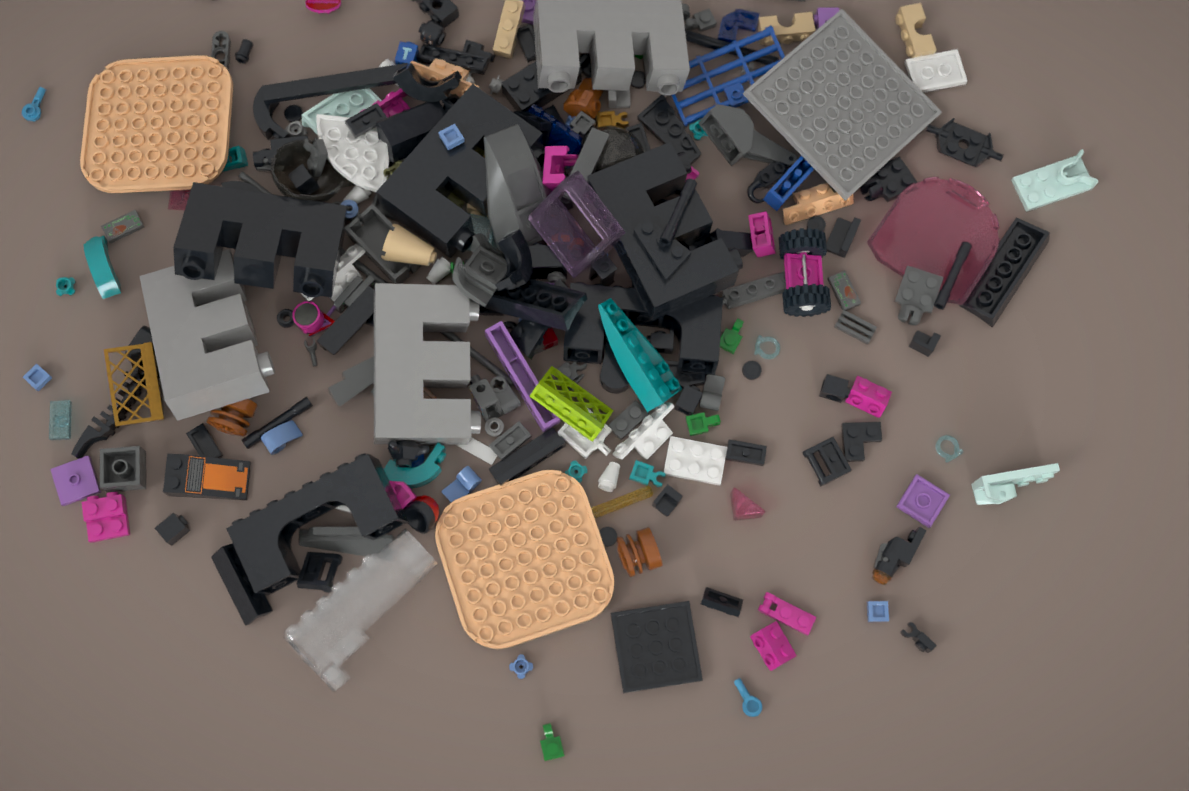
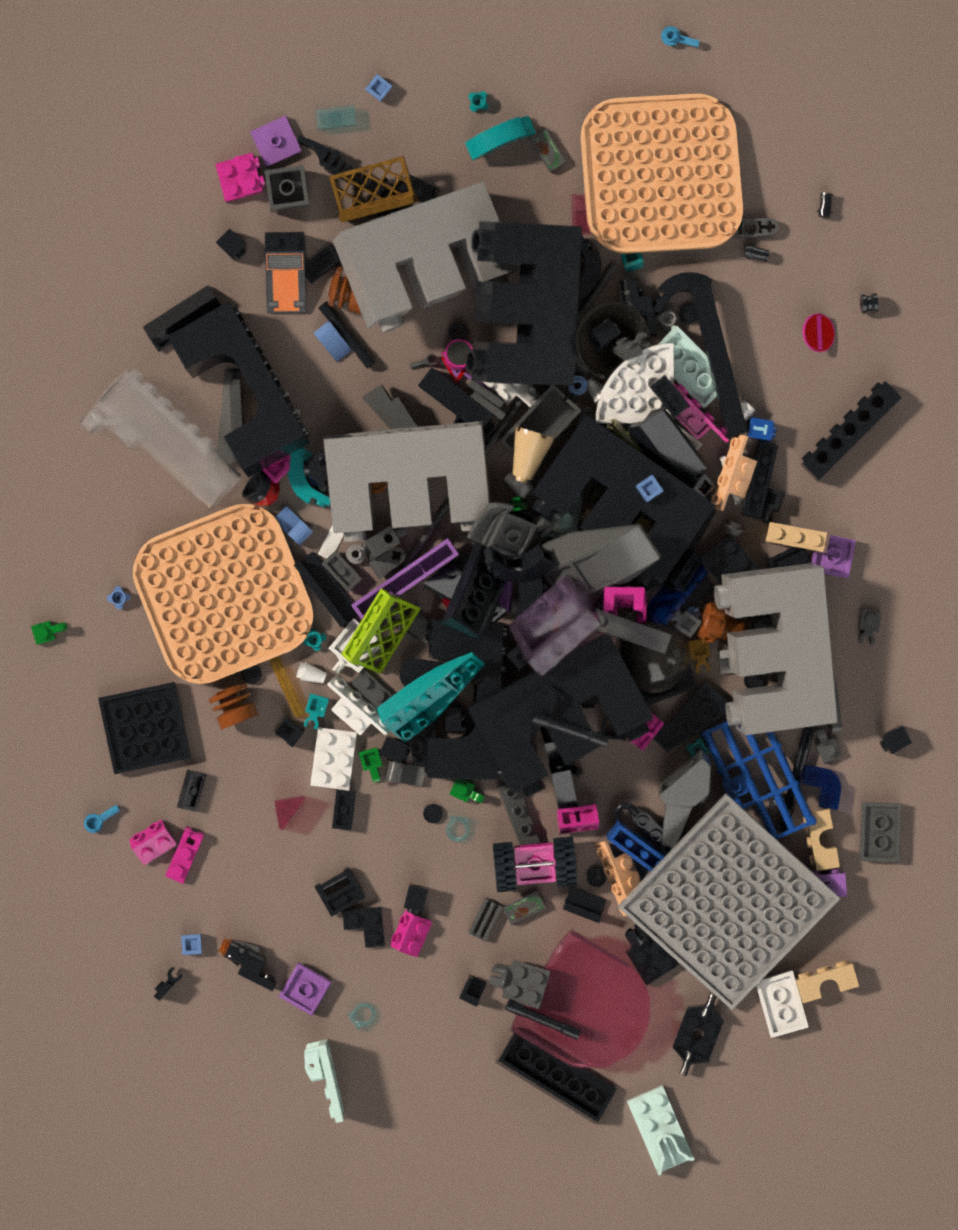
camera: 90 degrees right, 15 degrees up
(313, 569) = (200, 388): black plate -> none
(422, 89) = (714, 454): black arch -> none
(432, 33) = (789, 454): black head -> none

